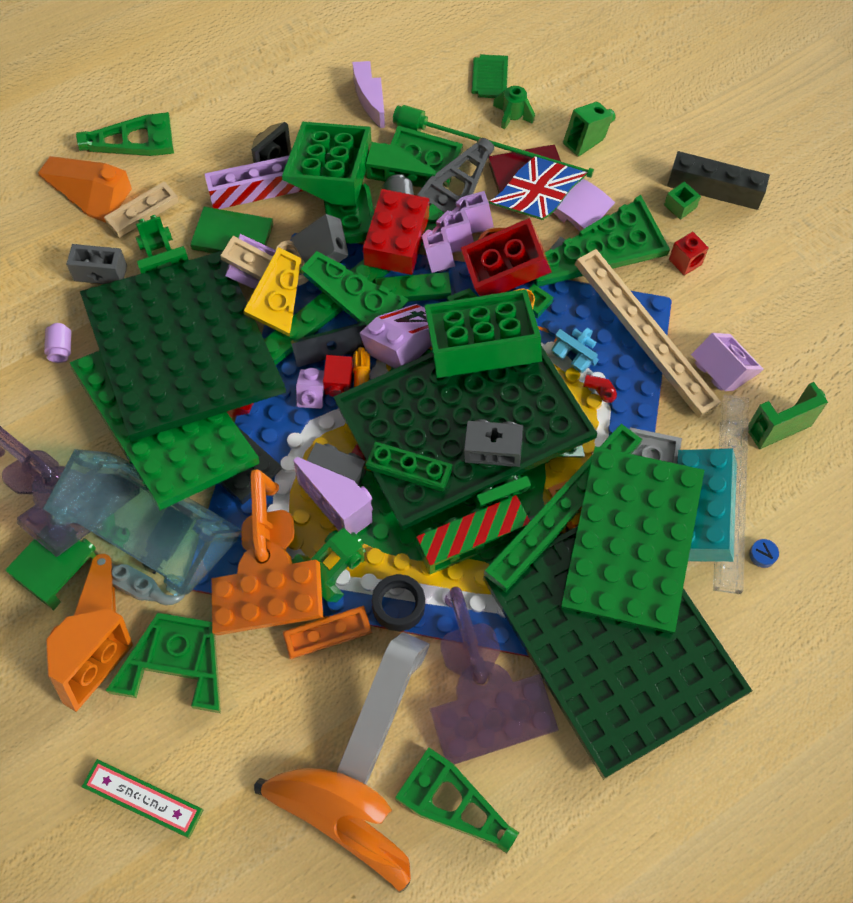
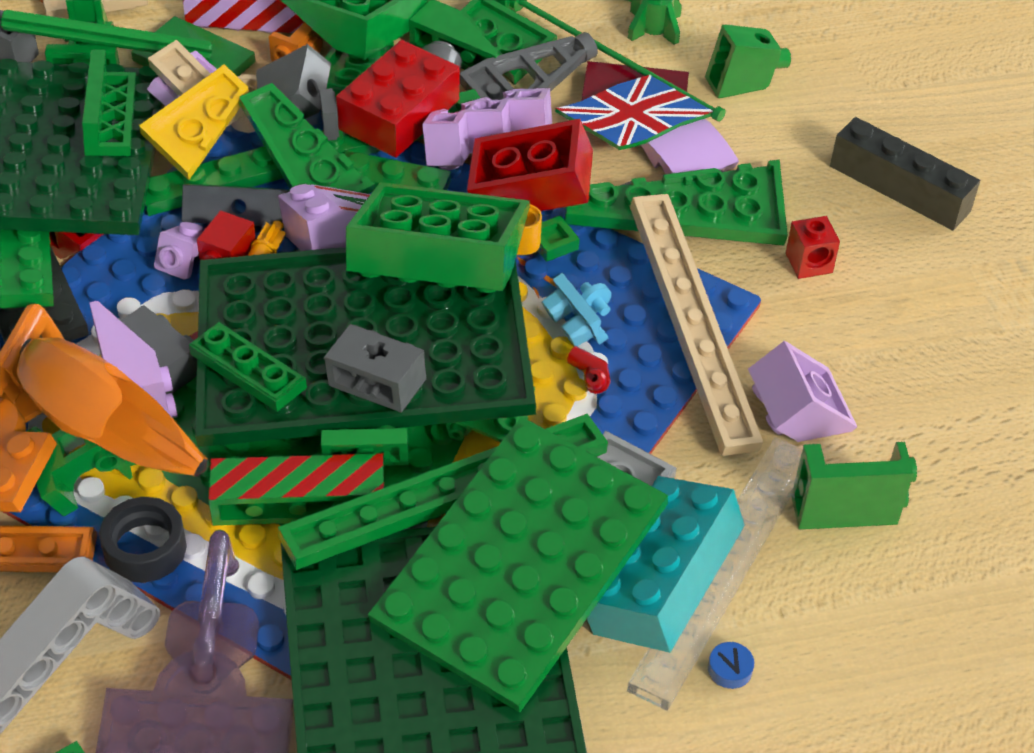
camera: 20 degrees right, 15 degrees down
(173, 242) = (97, 33): none -> green axle
(209, 306) = (99, 110): none -> green fence
(299, 210) = (282, 45): none -> orange bracket
(341, 531) = (104, 406): none -> orange piece
(358, 258) = (329, 113): none -> dark grey tile
(682, 200) = (837, 182): green plate -> none

